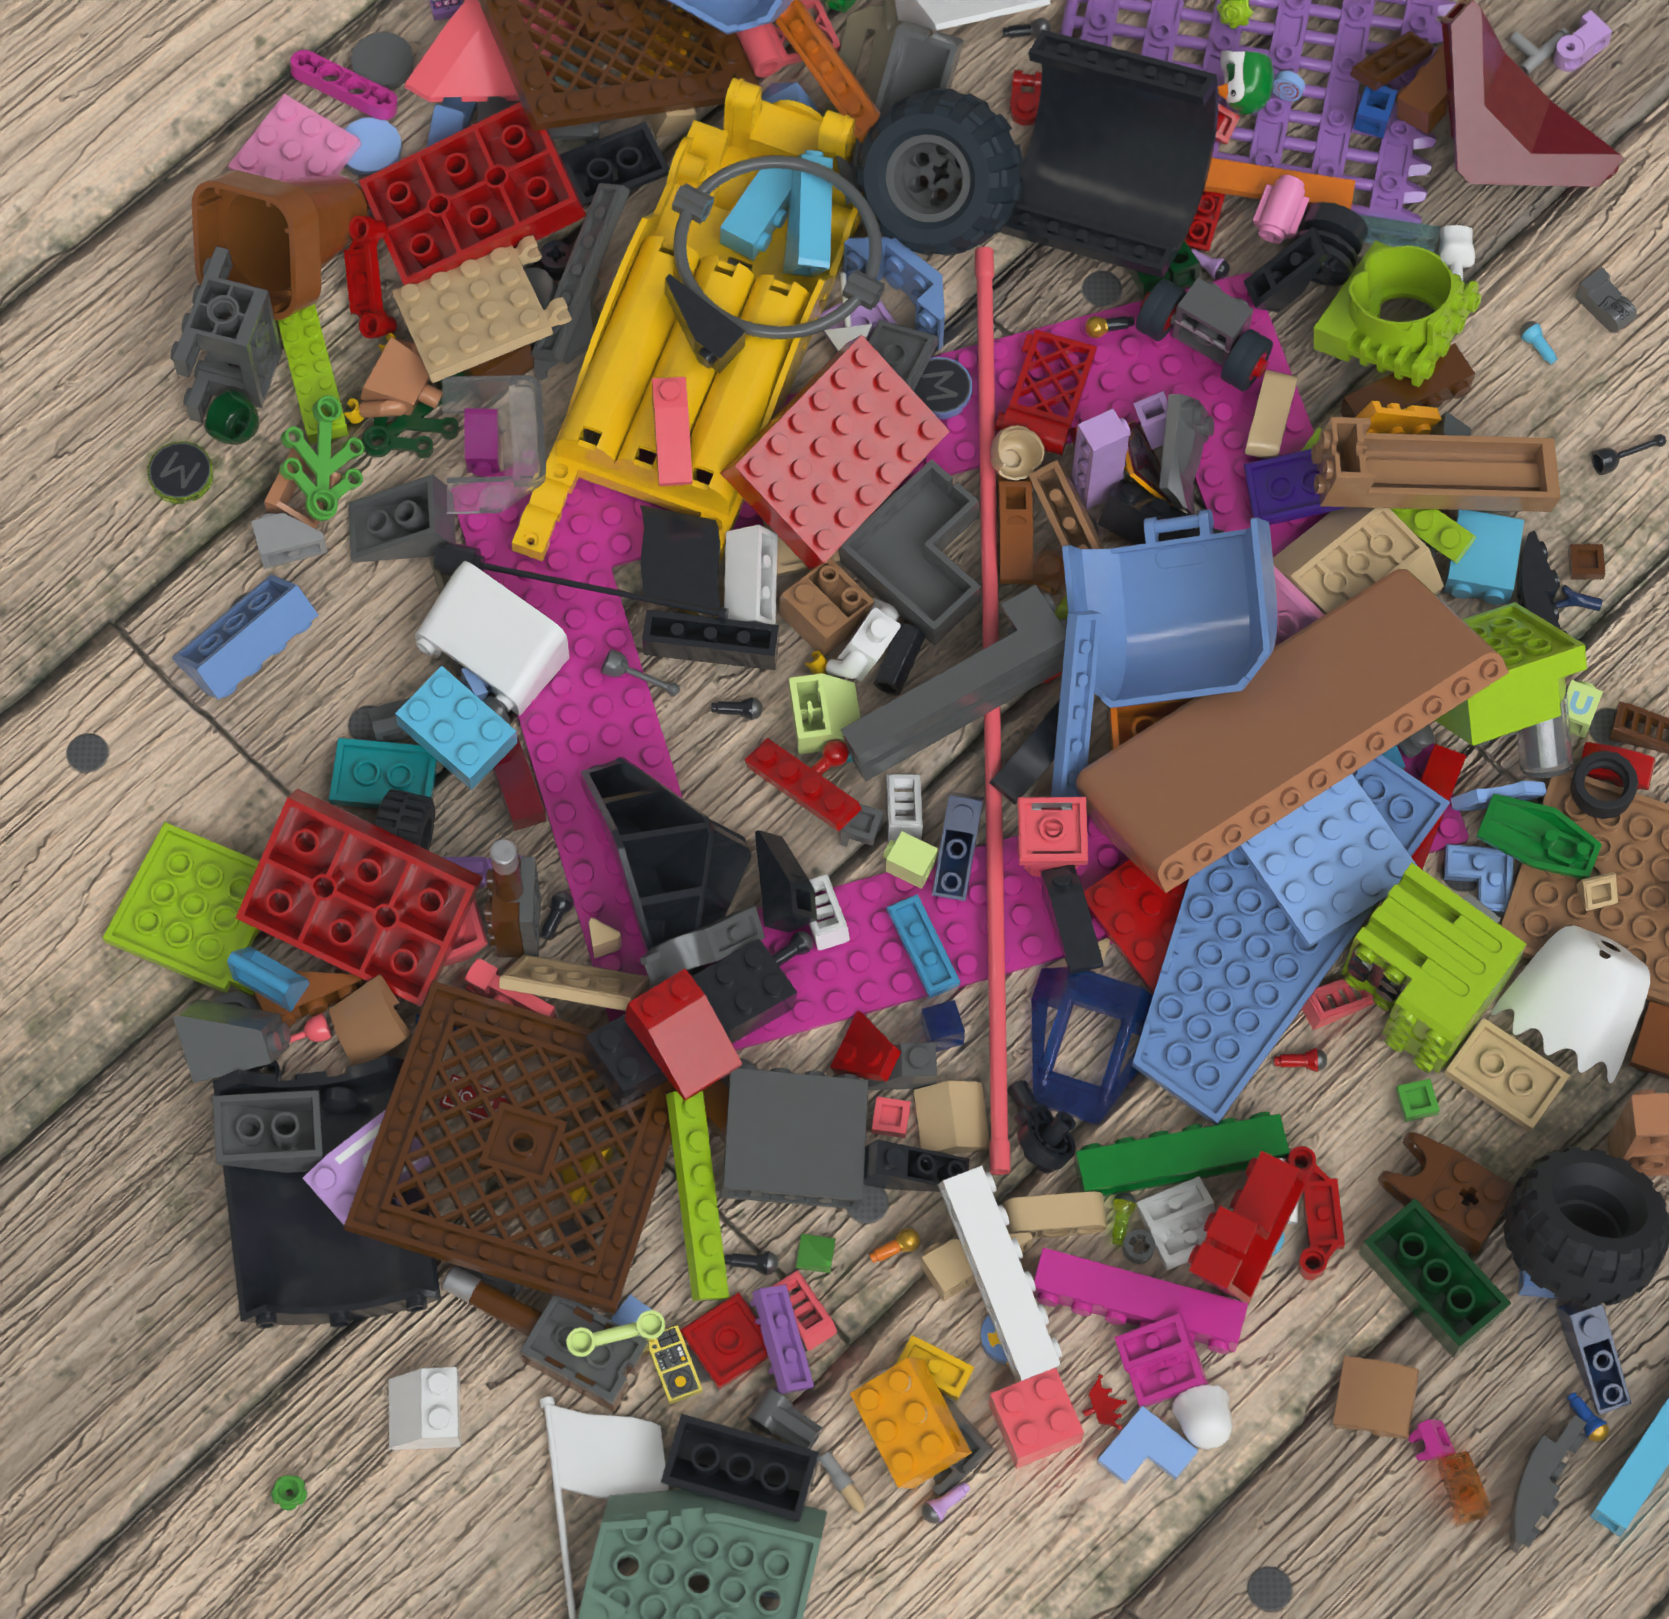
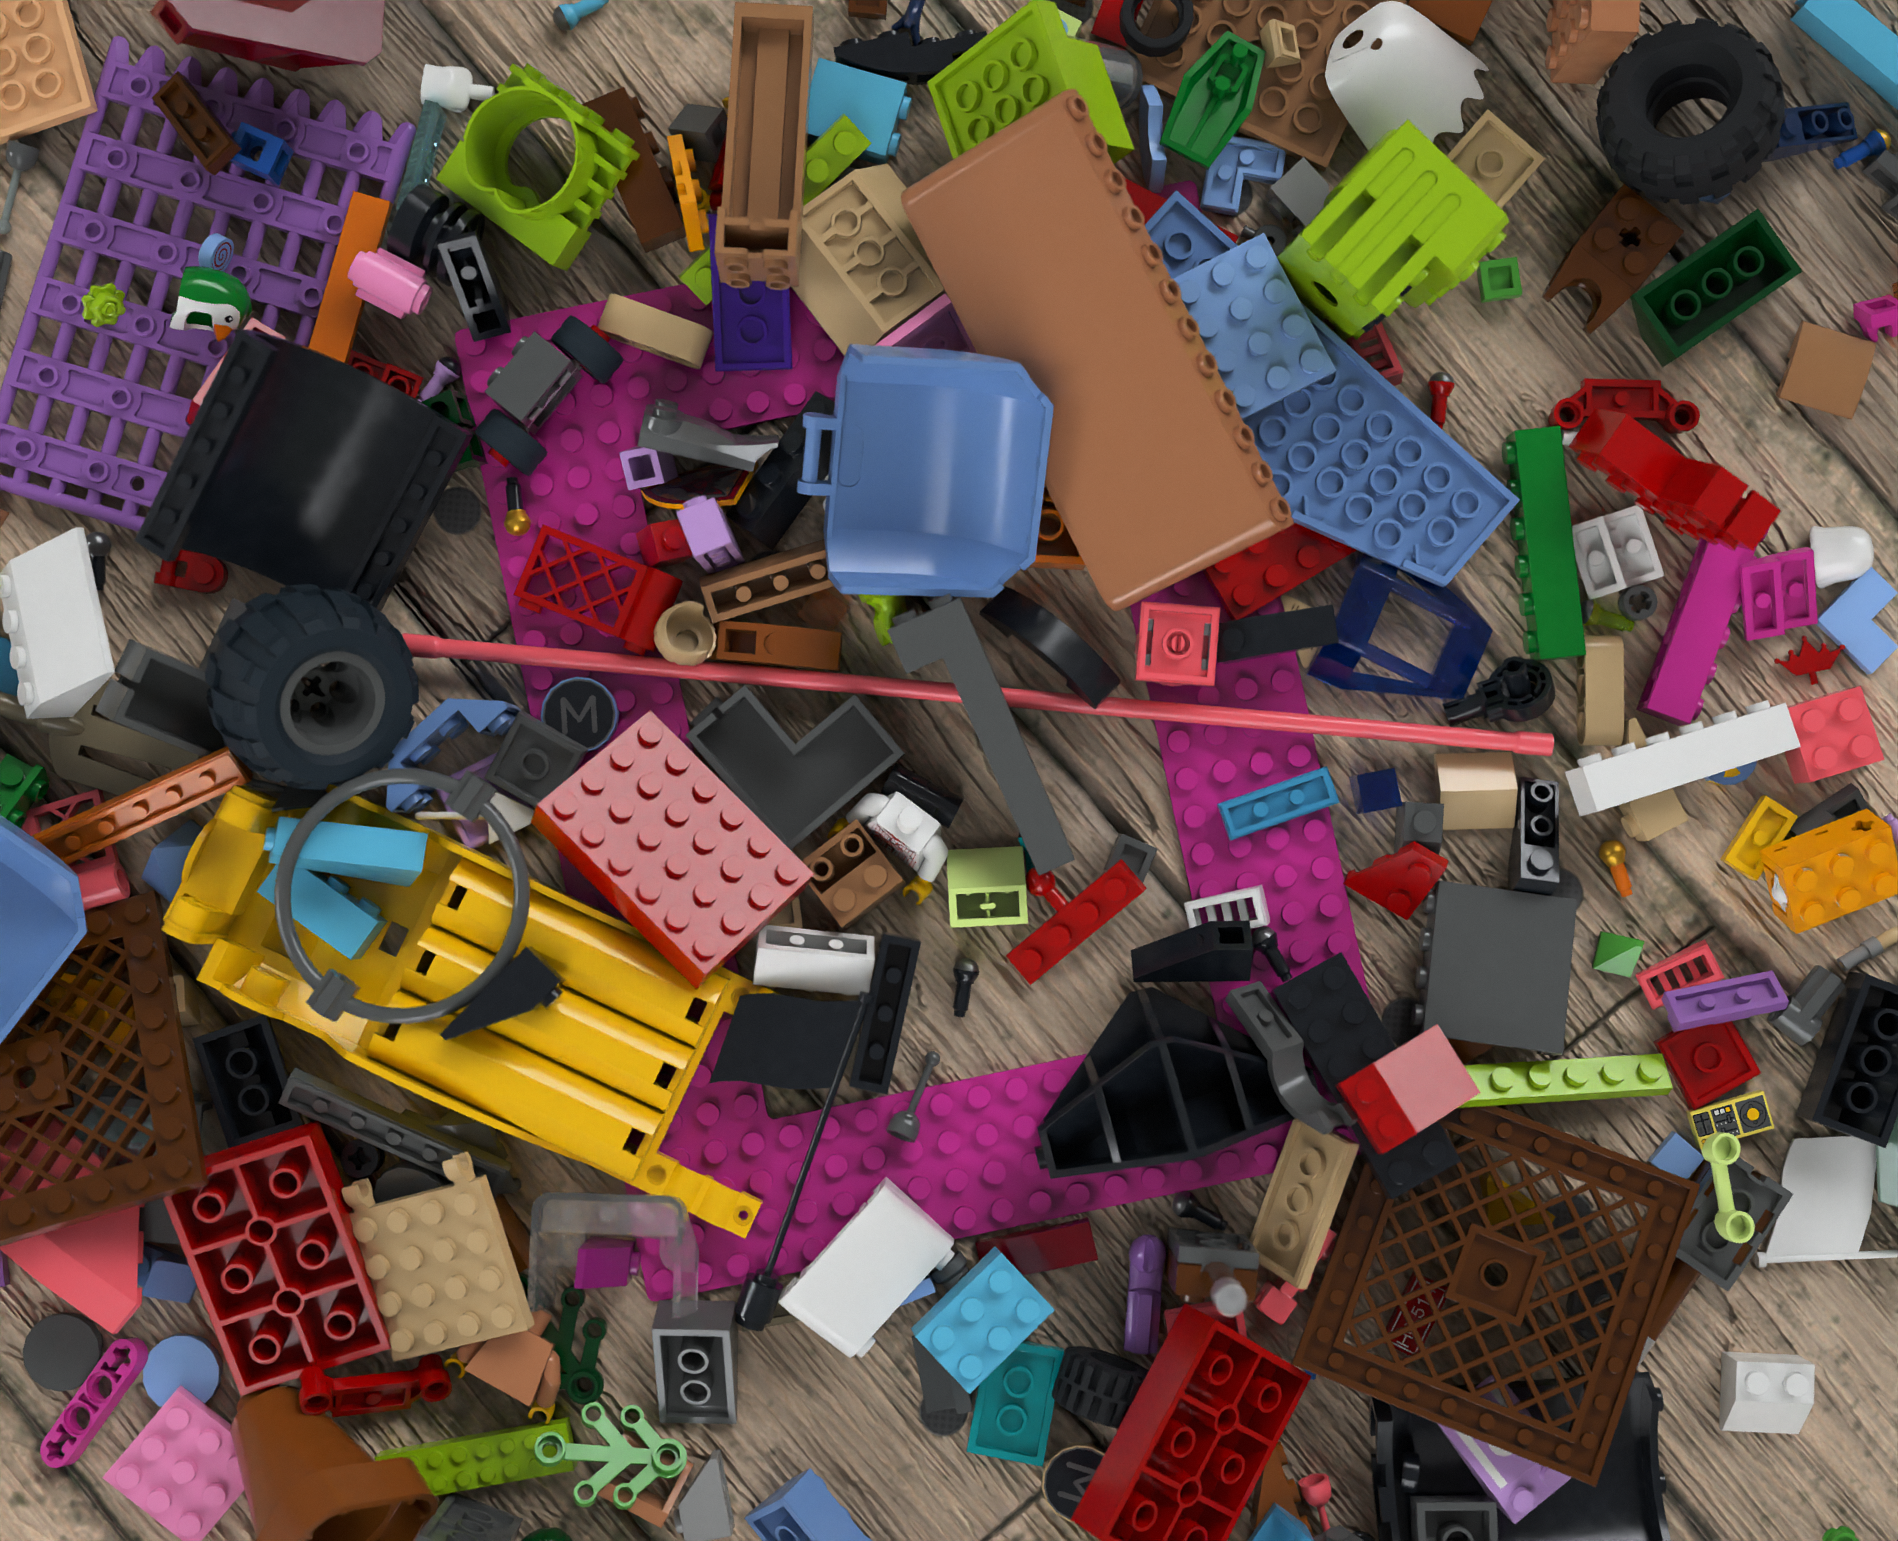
camera: 85 degrees left, 20 degrees up
(368, 1022) = (1325, 1437): medium nougat slope -> none
(604, 938) = (1244, 1164): tan slope -> none
(672, 431) = (646, 1045): coral slope -> none
(764, 1262) = (1624, 1012): black piece -> none
(891, 1117) = (1468, 857): coral tile -> none
(909, 824) = (1134, 809): white slope -> none
(910, 859) = (1178, 808): yellowish green brick -> none
(957, 846) = (1162, 751): dark blue slope -> none
(1076, 701) = (1031, 600): medium blue plate -> none
(1425, 98) = (248, 86): dark orange slope -> none

